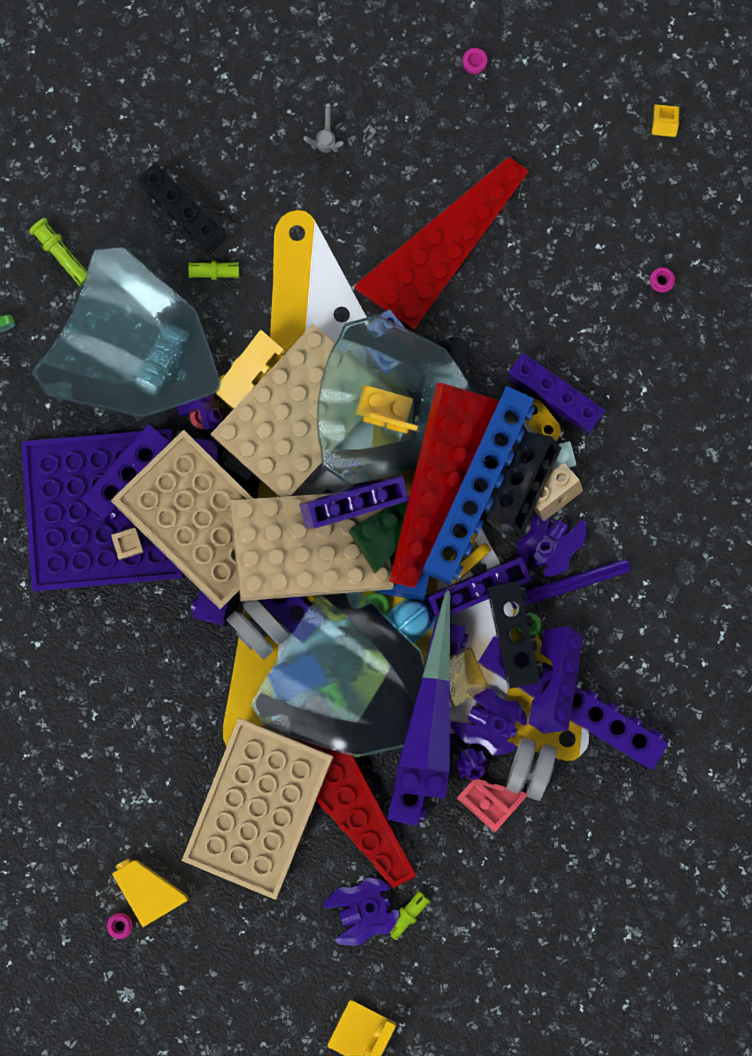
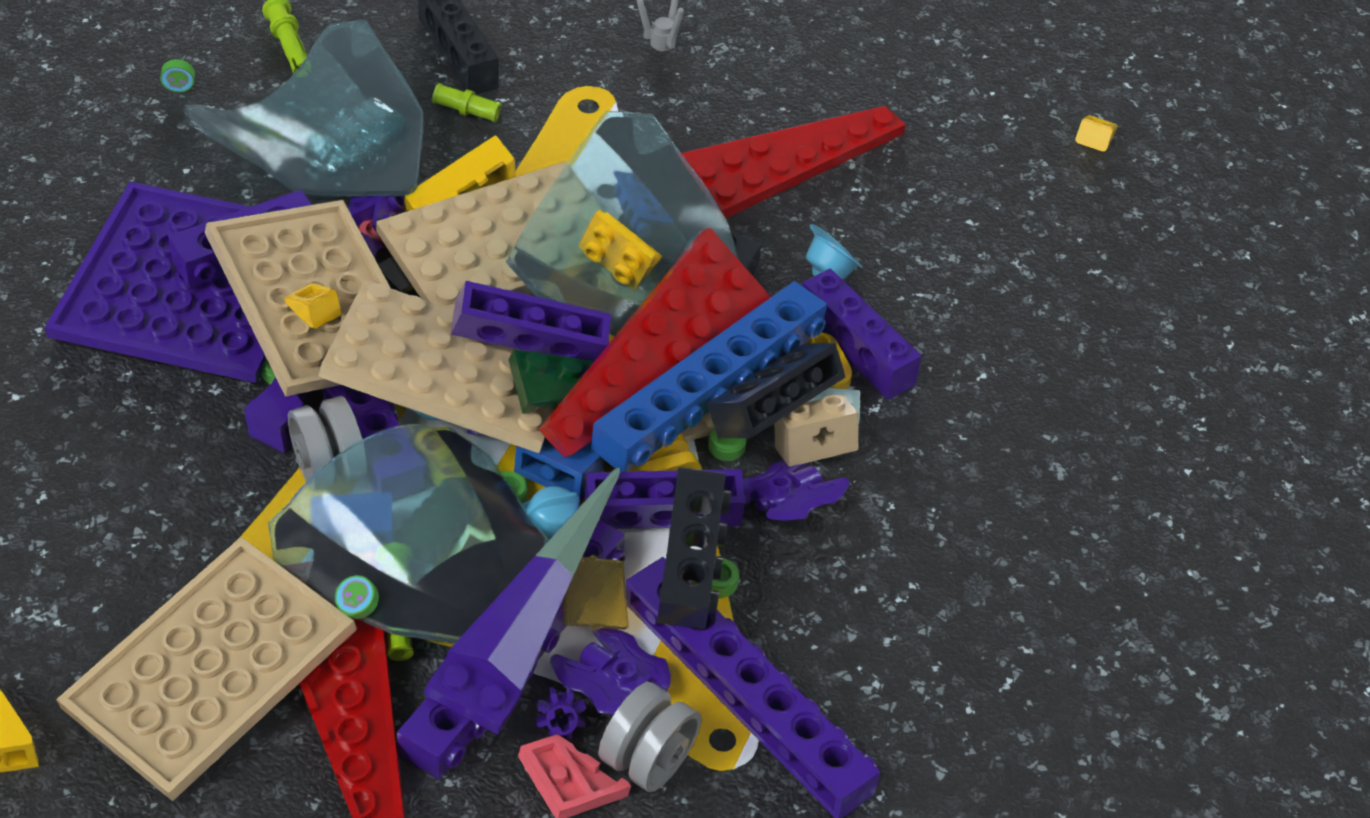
camera: 10 degrees right, 35 degrees down
(127, 543) = (201, 303): tan tile -> none
(207, 534) = (315, 304): none -> yellow slope
(328, 742) = (356, 597): none -> tile
(474, 61) = (875, 22): dark pink tile -> none
(516, 325) = (829, 253): none -> medium azure piece
(553, 707) = (722, 647): dark purple arch -> none
(576, 582) = (808, 547): dark purple axle -> none
(667, 274) = (1045, 269): dark pink plate -> none

